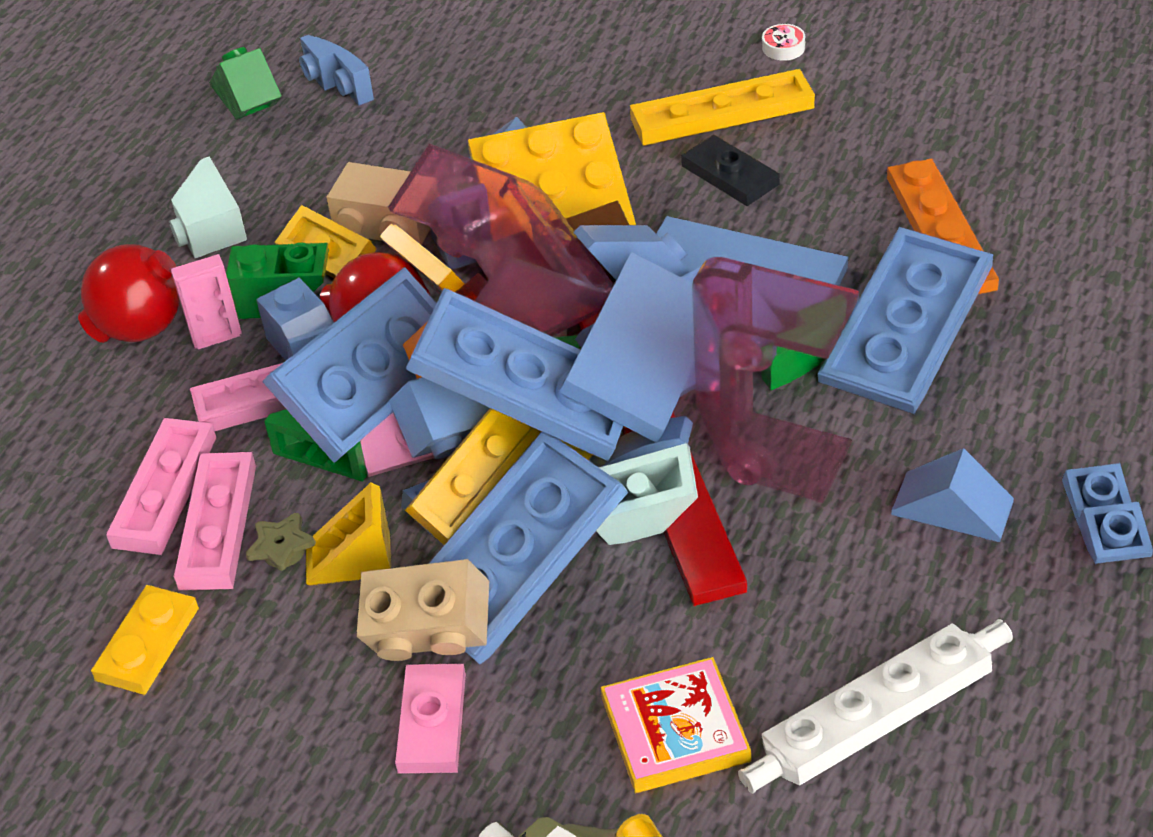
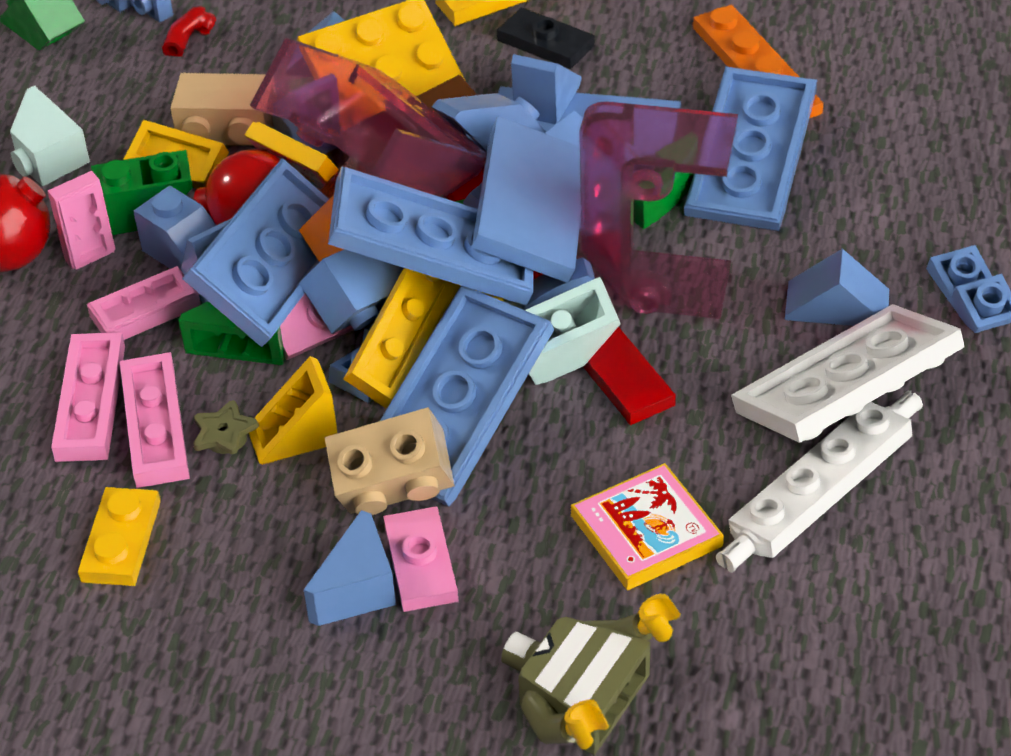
camera: 15 degrees left, 0 degrees up
(351, 727) = (352, 577): none -> medium blue slope
(375, 115) = (181, 30): none -> red arm
(702, 225) = (544, 86): none -> medium blue slope
(936, 588) = (847, 372): none -> white plate

